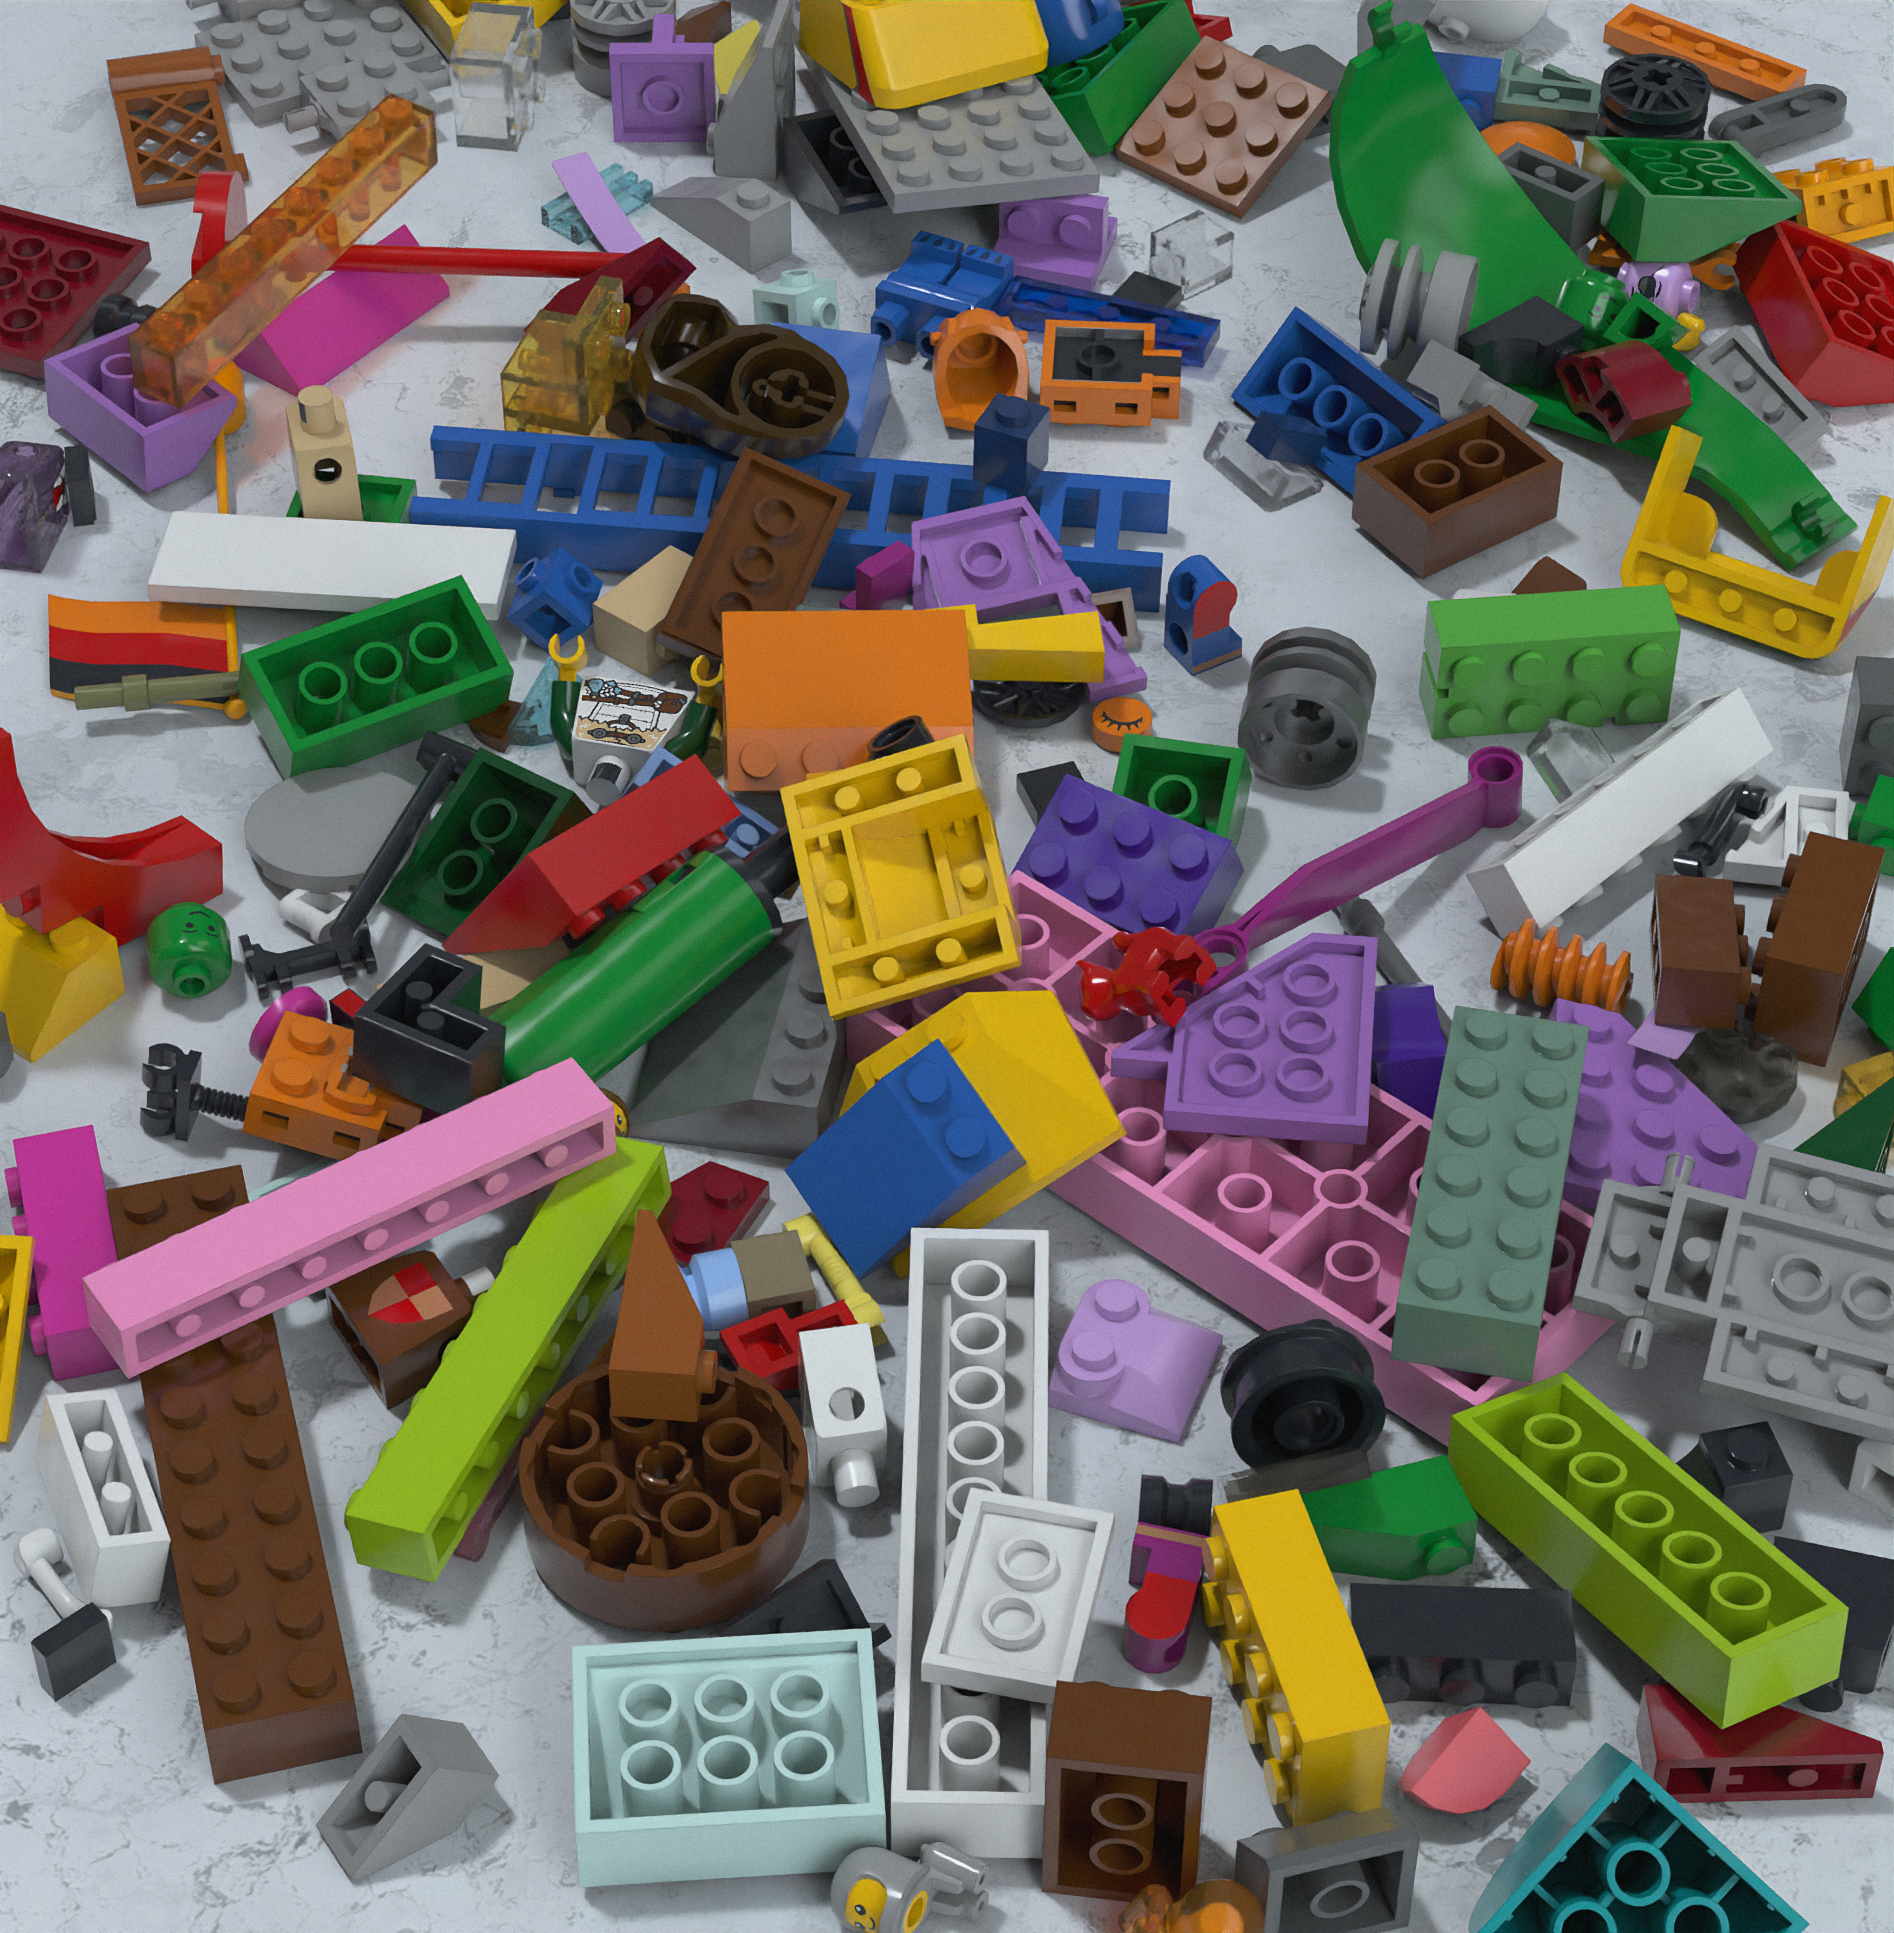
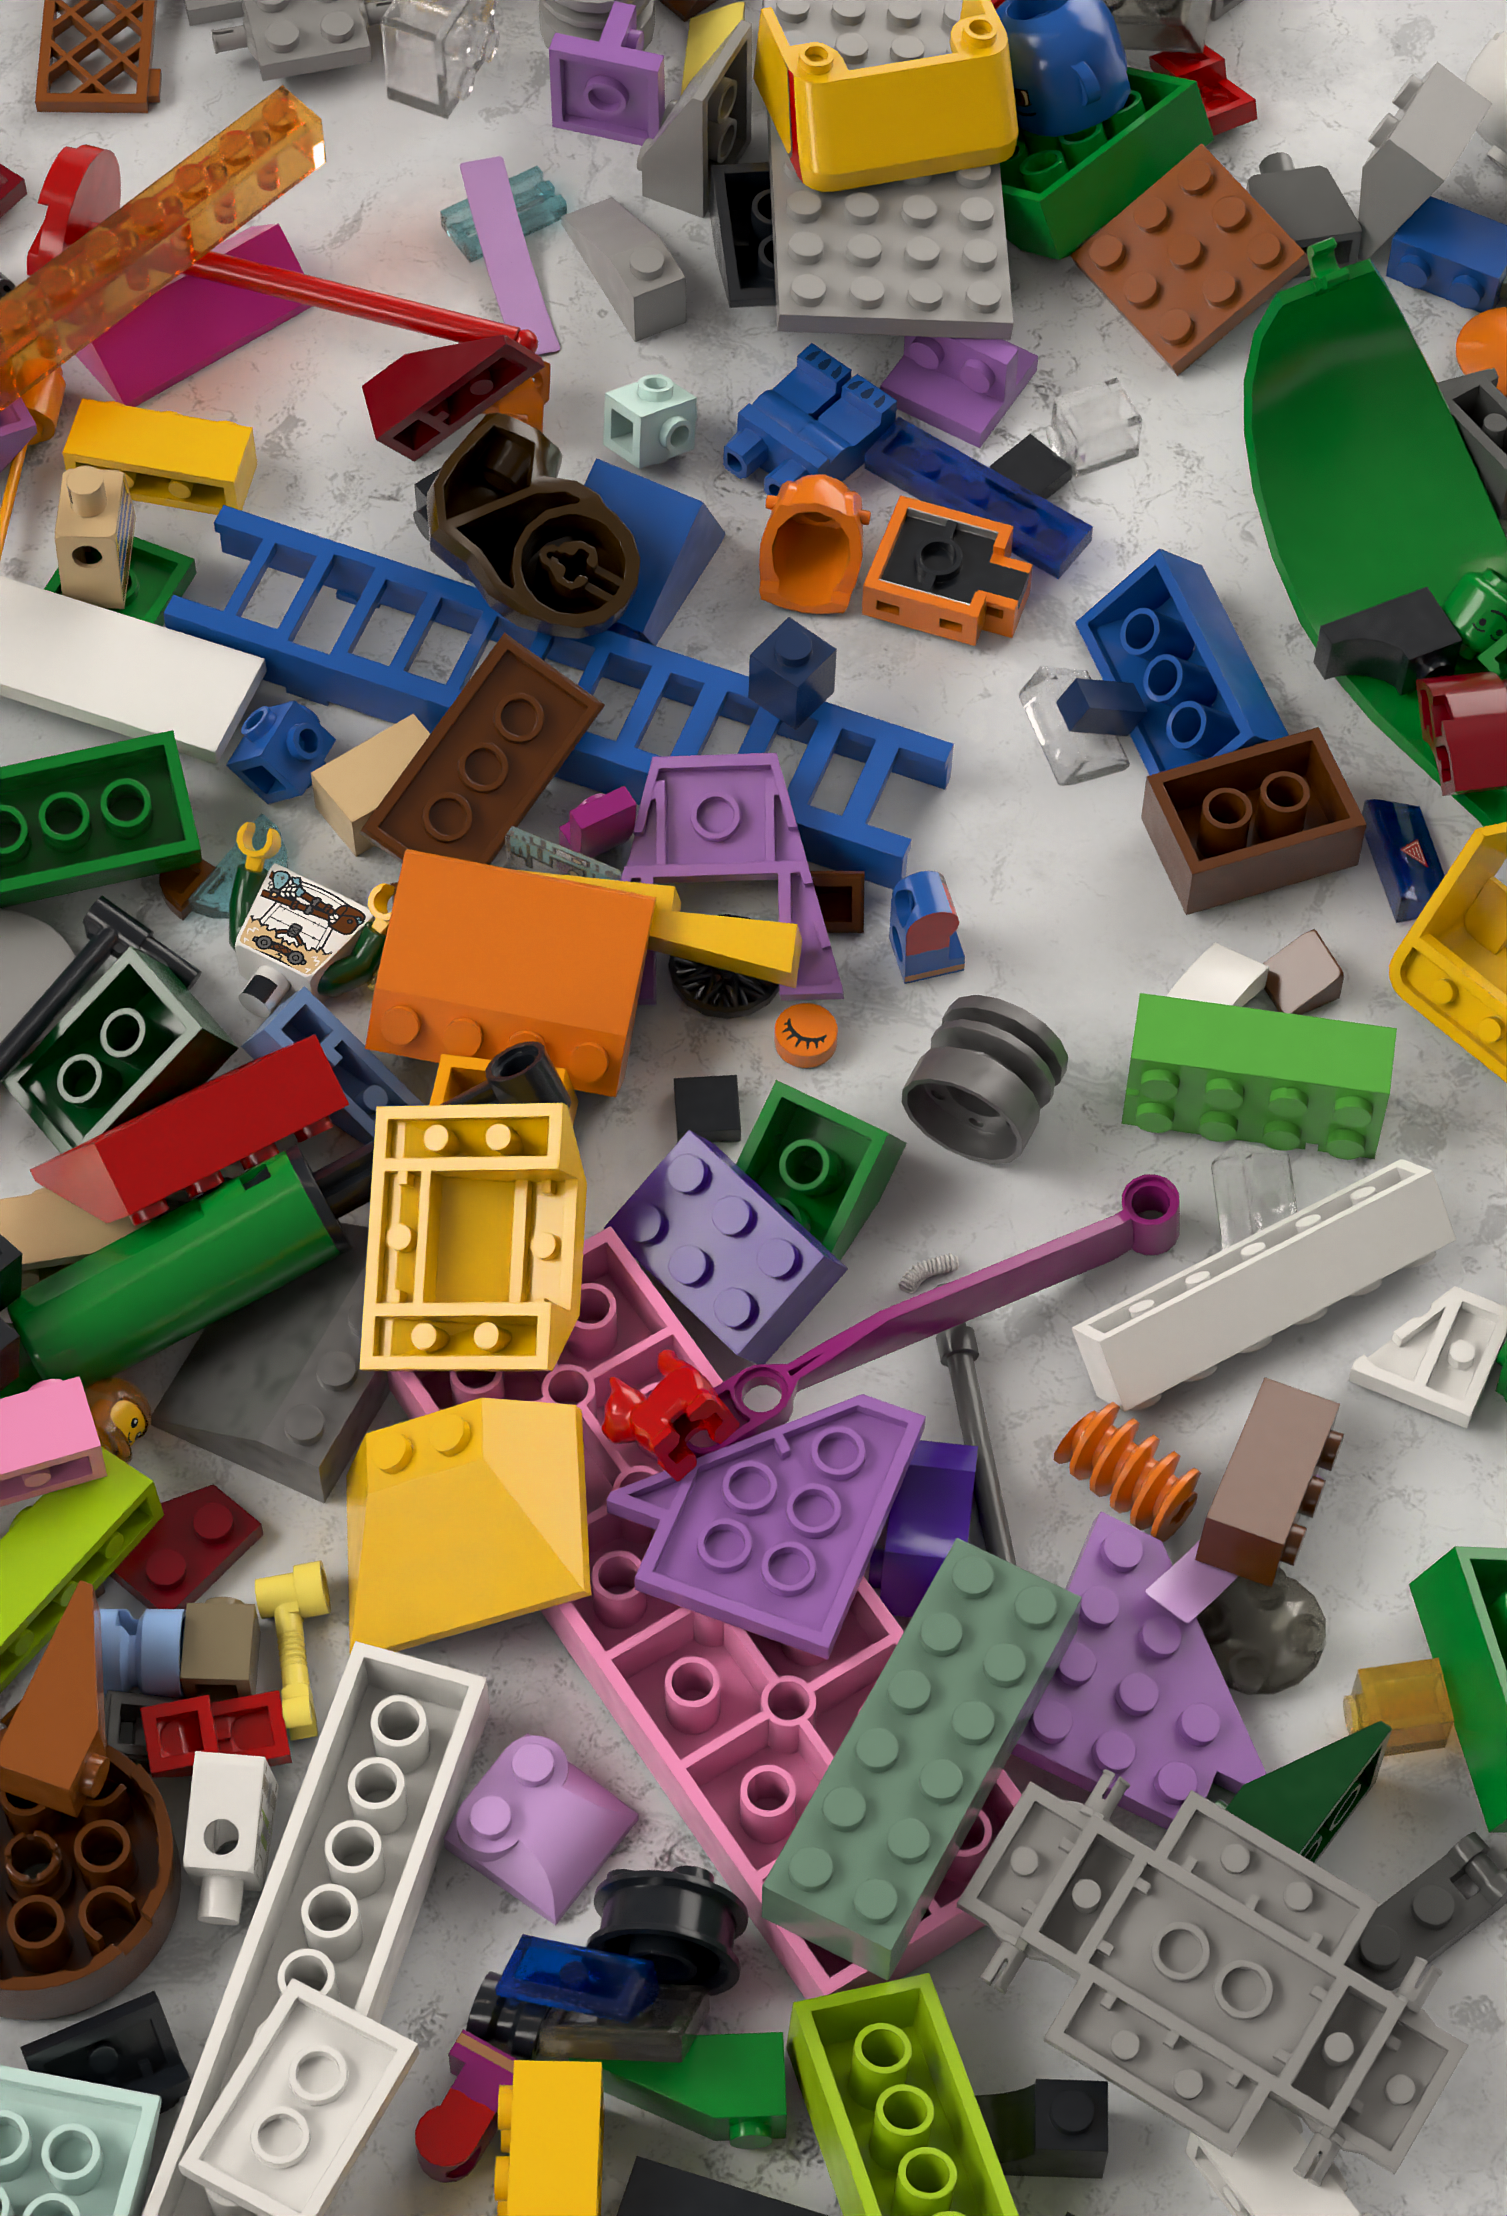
camera: 15 degrees right, 15 degrees up
(385, 411) = (165, 454): none -> yellow brick
(569, 365) = (372, 468): clear yellow bracket -> none
(903, 1159) = (376, 1561): blue slope -> none
(1236, 1445) = (579, 1979): none -> clear blue slope
(1416, 302) = (1280, 573): light grey wheel -> none
(1459, 387) = (1306, 693): light grey window -> none
(1596, 507) = (1402, 855): none -> clear blue slope
(1716, 833) = (1391, 1296): black arm -> none
(1814, 944) = (1390, 1510): reddish brown brick -> none

